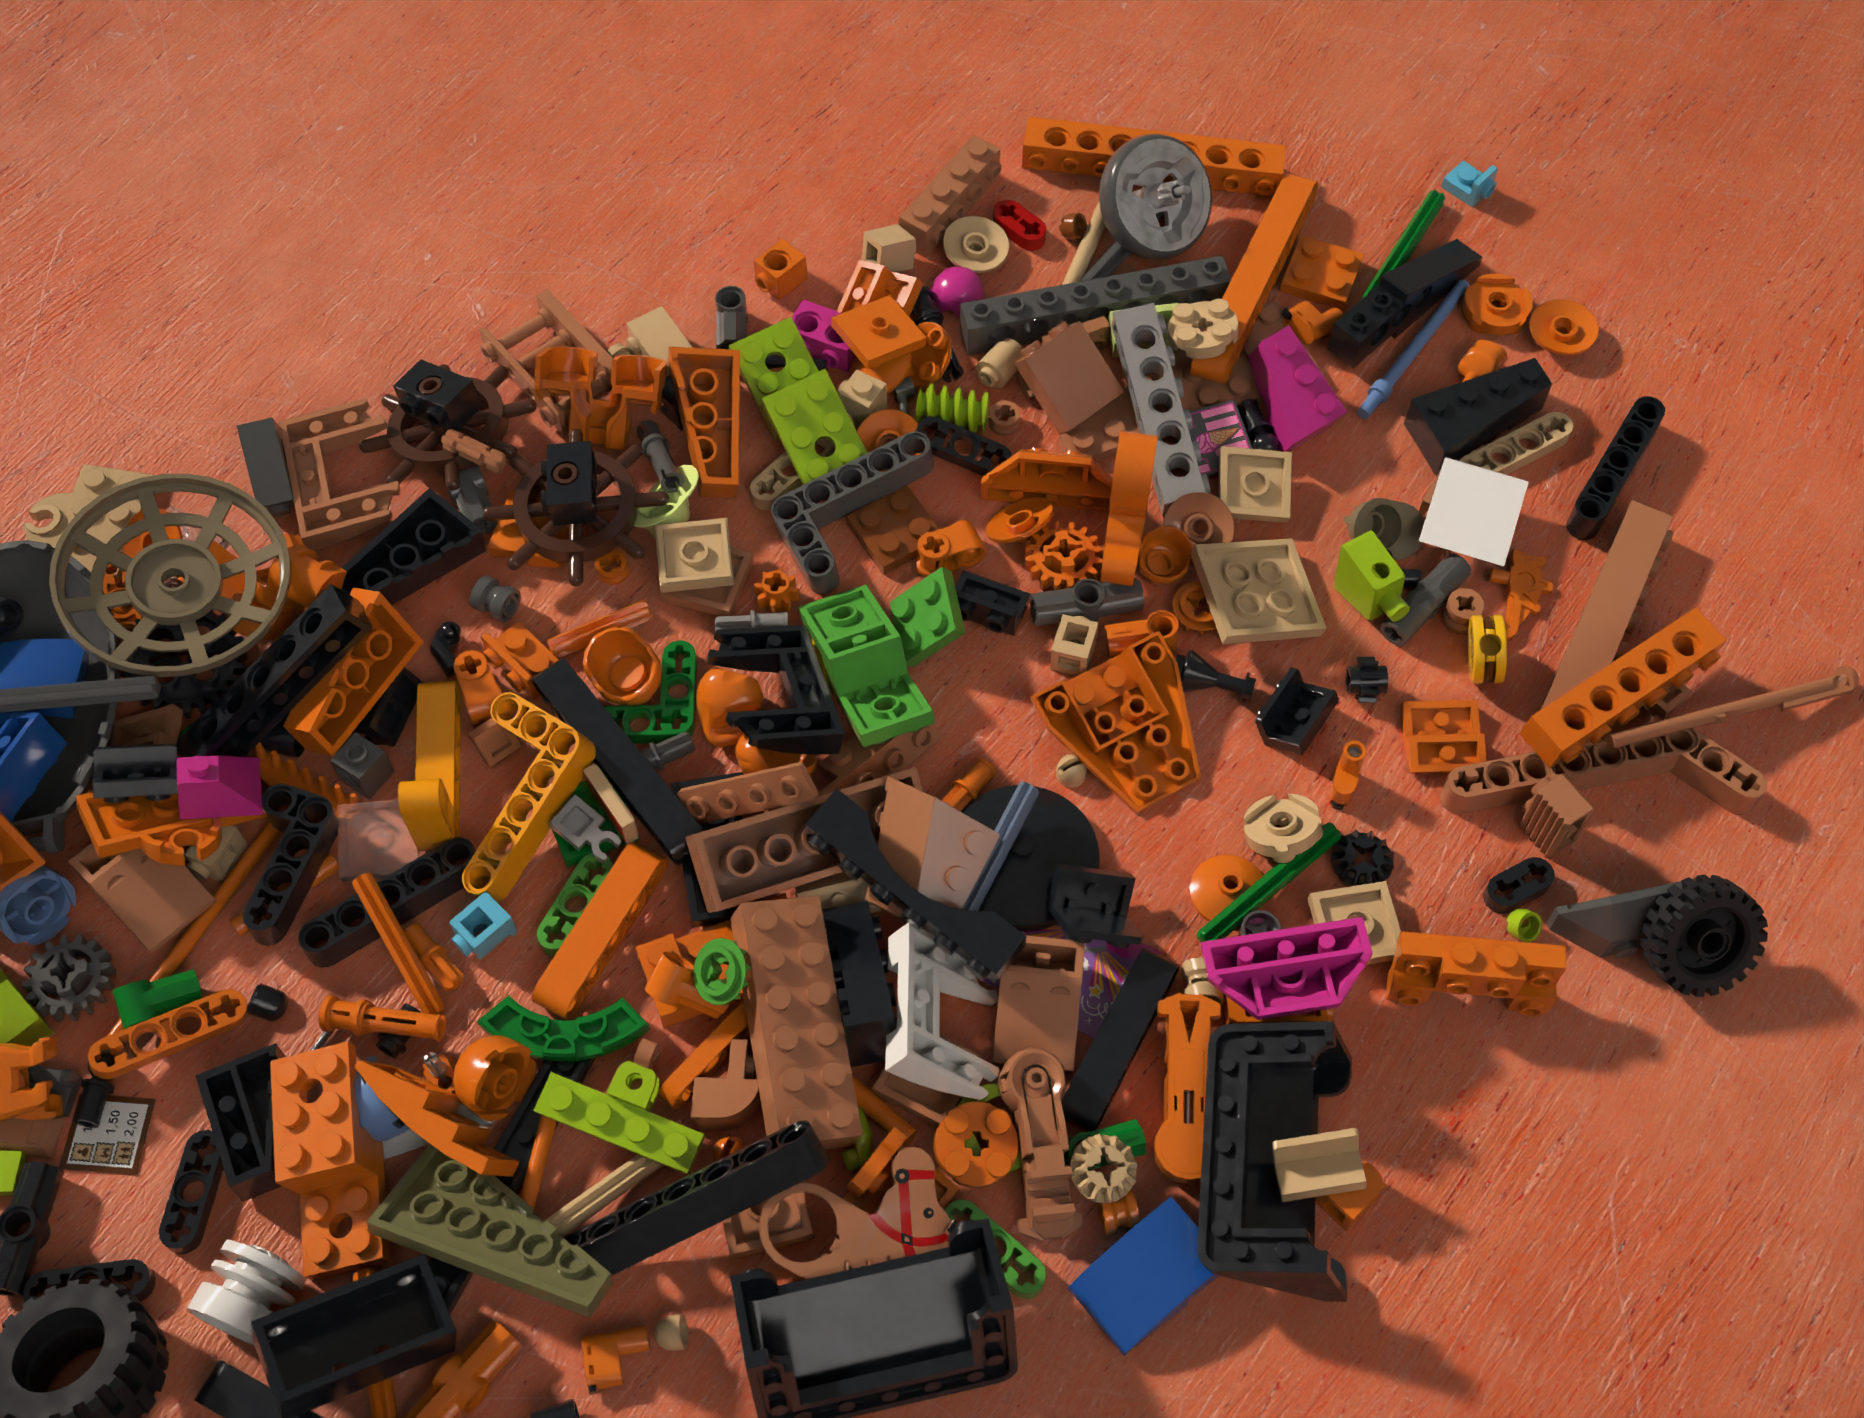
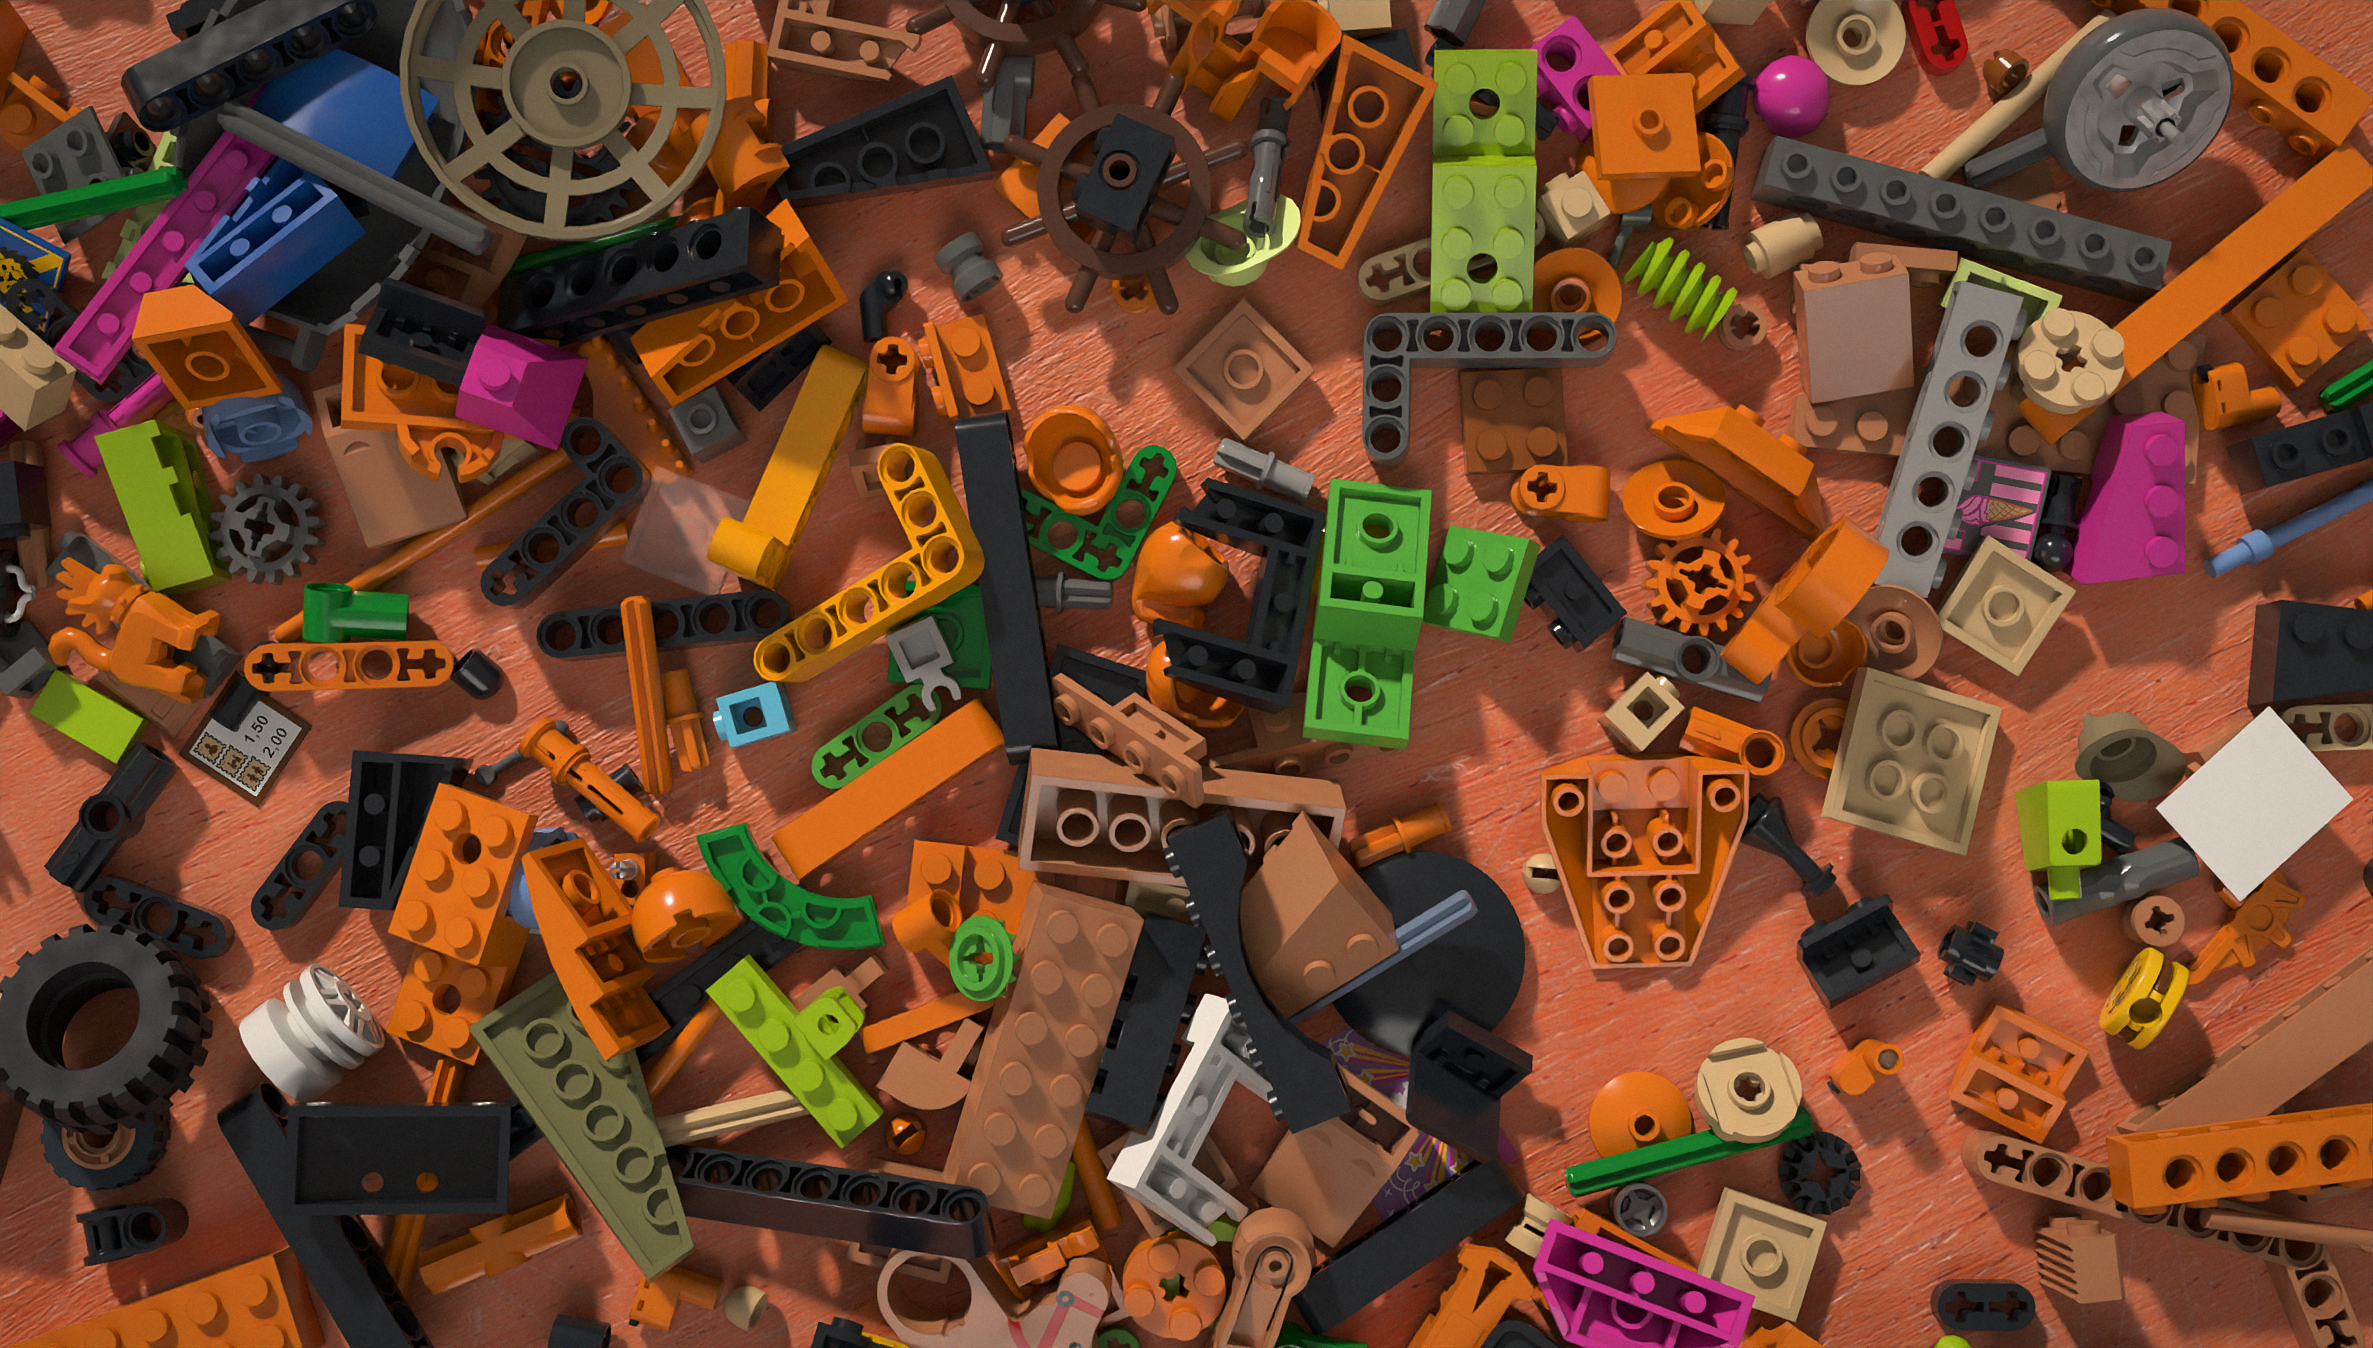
camera: 25 degrees right, 25 degrees up
(474, 451) = (1030, 51): nougat axle -> none
(580, 636) = (1077, 375): orange axle -> none
(611, 803) = (970, 644): tan tile -> none
(694, 555) = (1237, 342): tan plate -> none
(776, 591) = (1312, 427): orange gear -> none
(944, 428) = (1695, 370): black beam -> none

